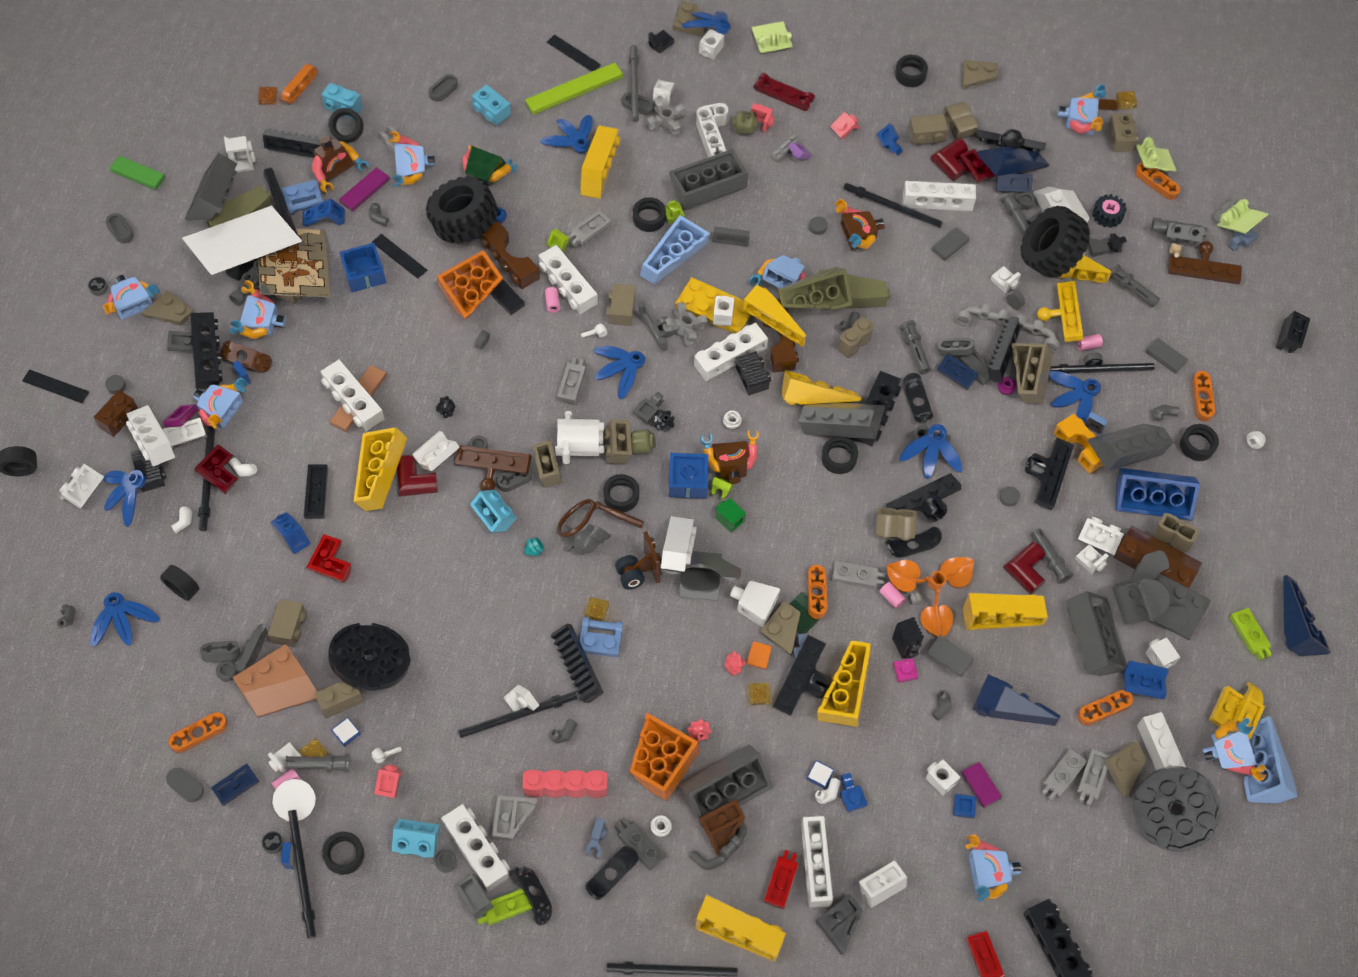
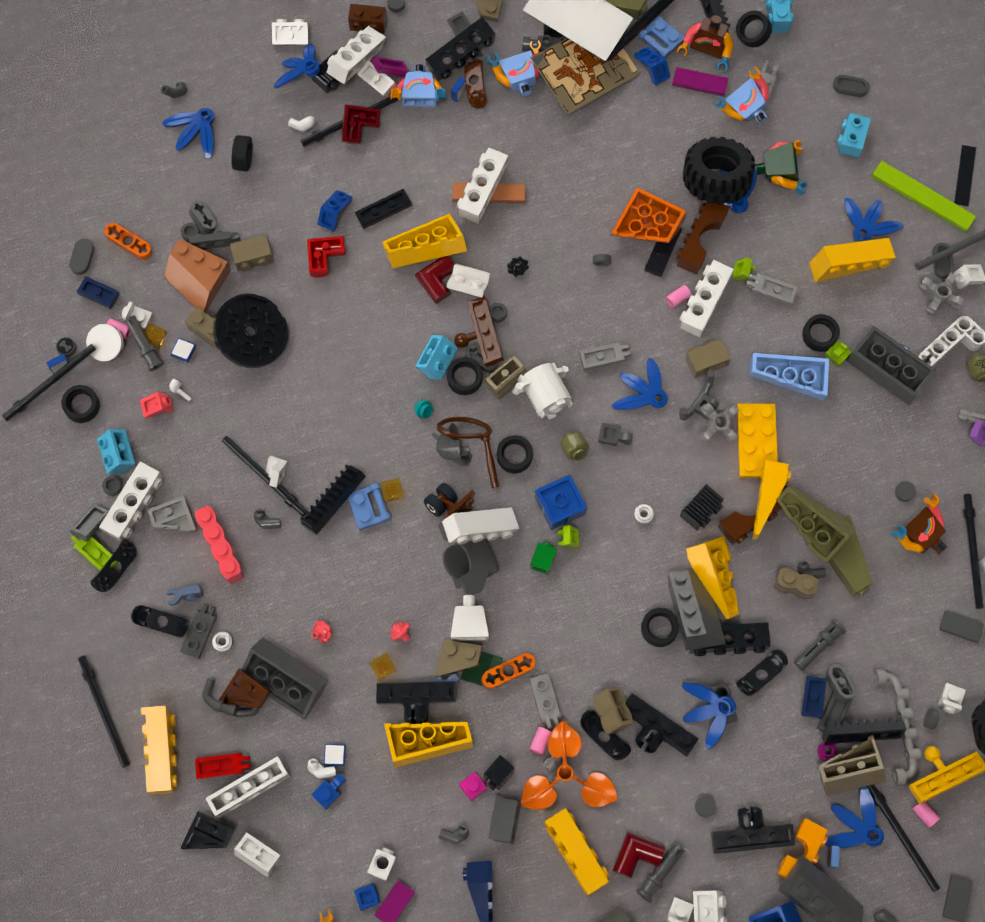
camera: 65 degrees right, 10 degrees up
(242, 469) = (371, 142): white arm -> none
(362, 267) = (616, 124): blue container -> none
(375, 214) = (678, 105): dark grey arm -> none
(399, 256) = (650, 147): black sticker -> none
(520, 485) = (464, 390): none -> black tyre
(599, 329) = (671, 352): white hand -> none
(618, 441) = (561, 425): dark tan brick -> none
(662, 757) = (279, 611): orange wedge -> none
(663, 420) = (608, 454): black plant -> none
(723, 317) = (743, 454): white brick -> none
(725, 360) = (702, 477): white brick -> none
(731, 236) = (841, 417): dark grey tile -> none
(732, 458) = (599, 531): torso -> none
(759, 655) = (419, 649): orange slope -> none
(780, 272) = (826, 482): light blue torso -> none
(1093, 359) = (906, 824): dark grey tile -> none

